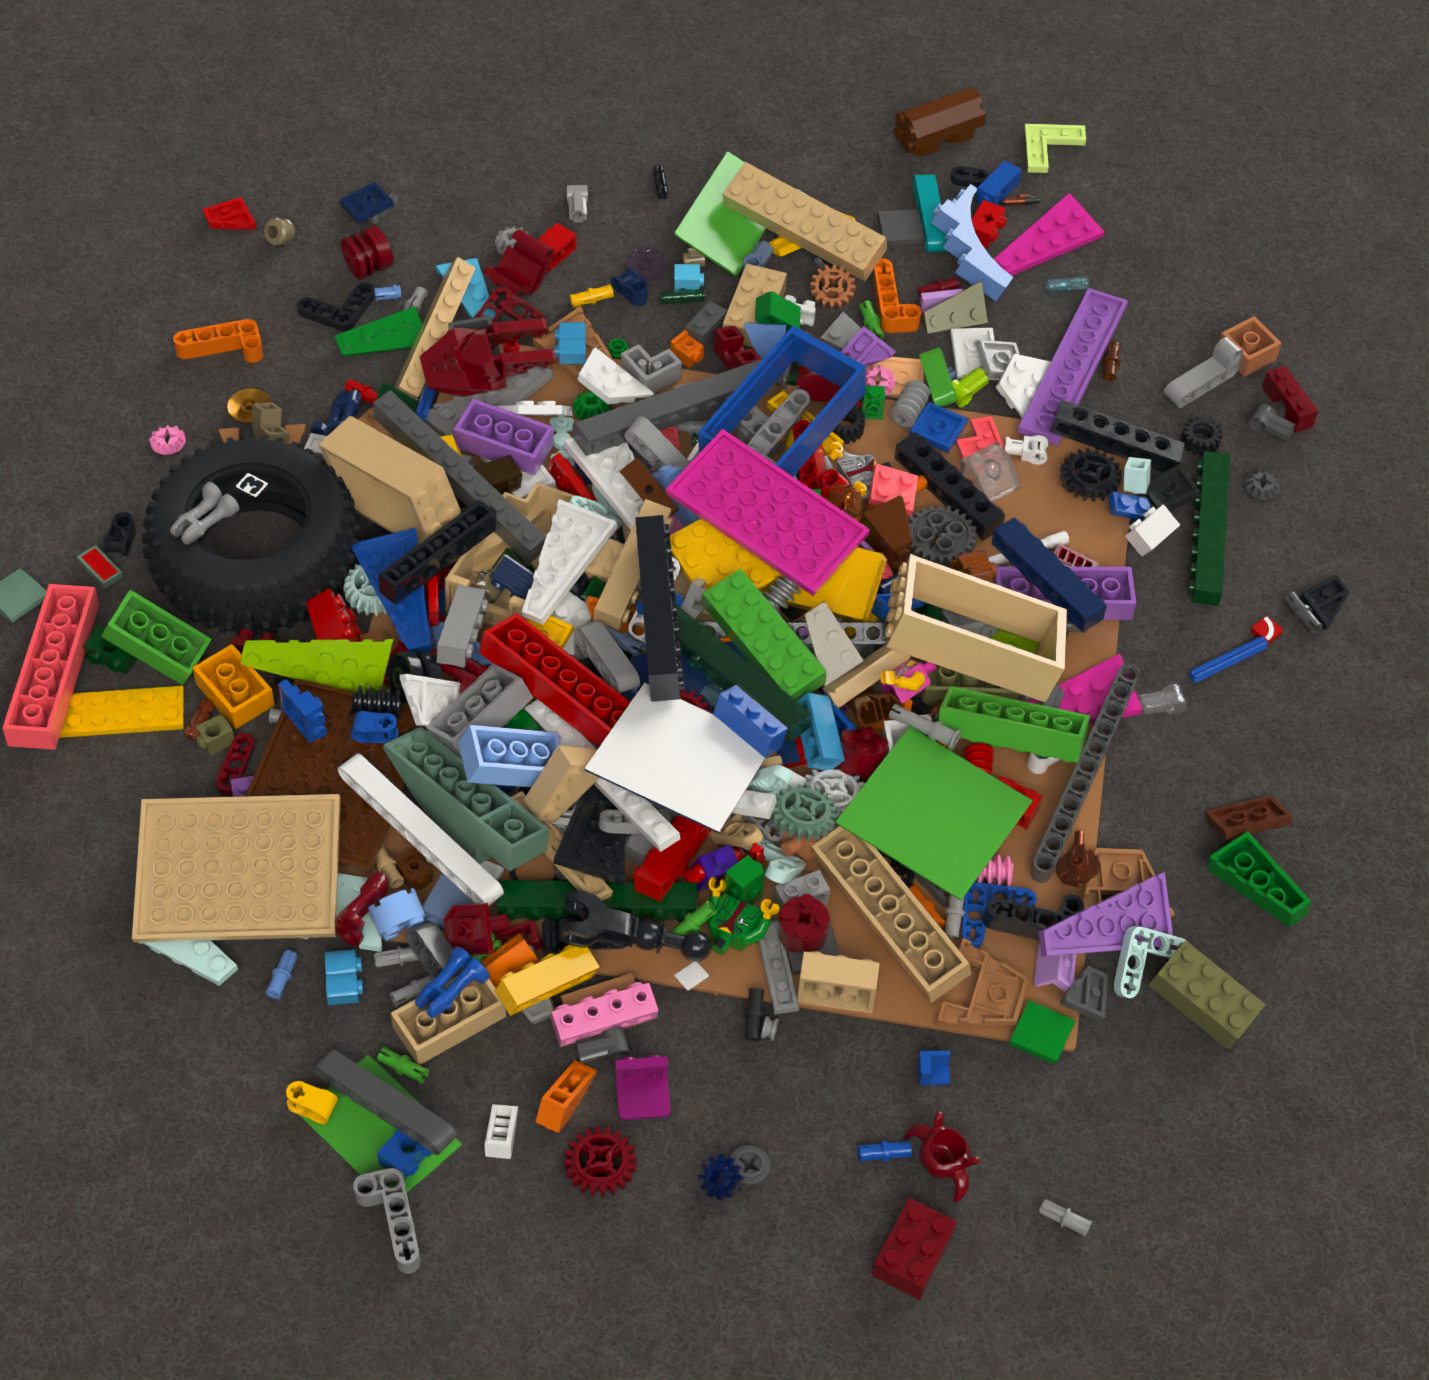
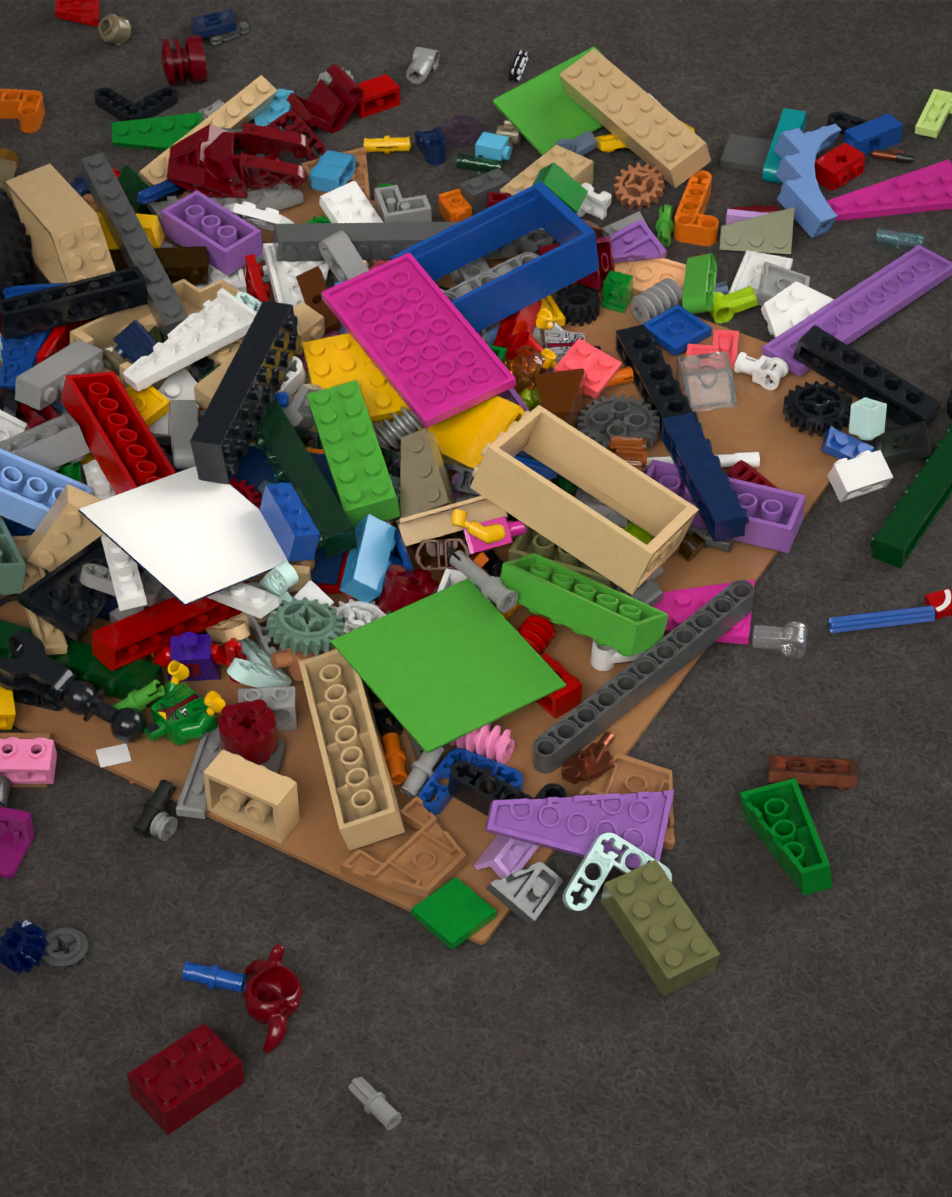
camera: 25 degrees right, 10 degrees down
(388, 293) = (189, 101): medium blue pin -> none
(745, 880) = (210, 673): green brick -> none
(887, 378) = (647, 277): bright pink gear -> none
(933, 1067) = (315, 913): blue panel -> none
(944, 118) = (846, 64): reddish brown brick -> none
(1112, 361) = (913, 310): reddish brown pin -> none

